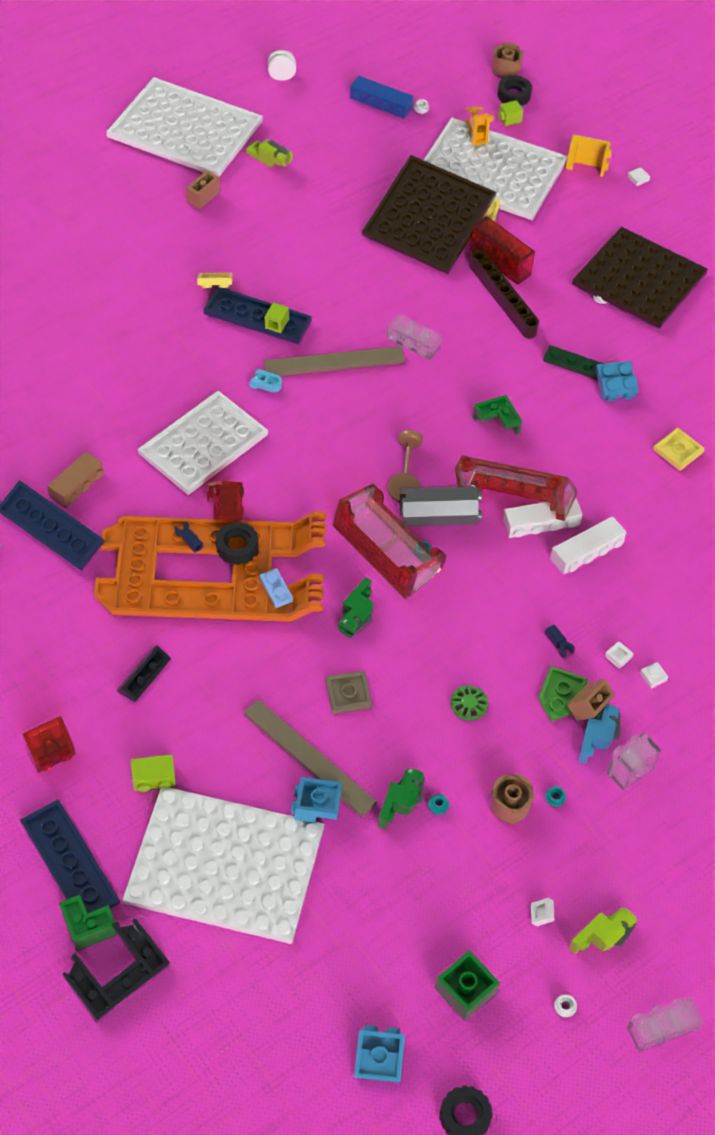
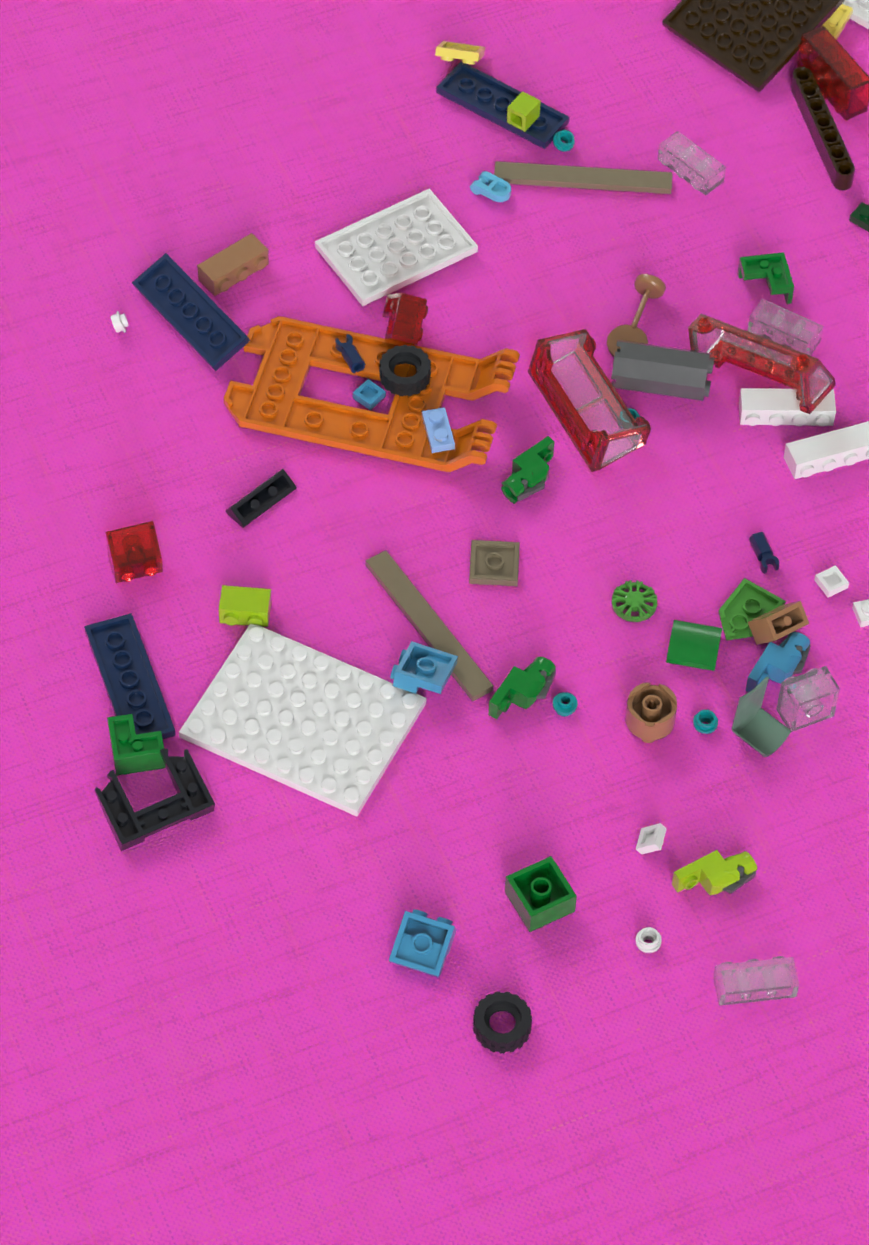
camera: 15 degrees right, 0 degrees up
(211, 568) = (369, 394): none -> dark azure plate
(312, 331) = (567, 137): none -> teal plate
(522, 453) = (785, 327): none -> clear brick
(528, 731) = (694, 645): none -> green slope
(601, 793) = (756, 725): none -> sand green piece

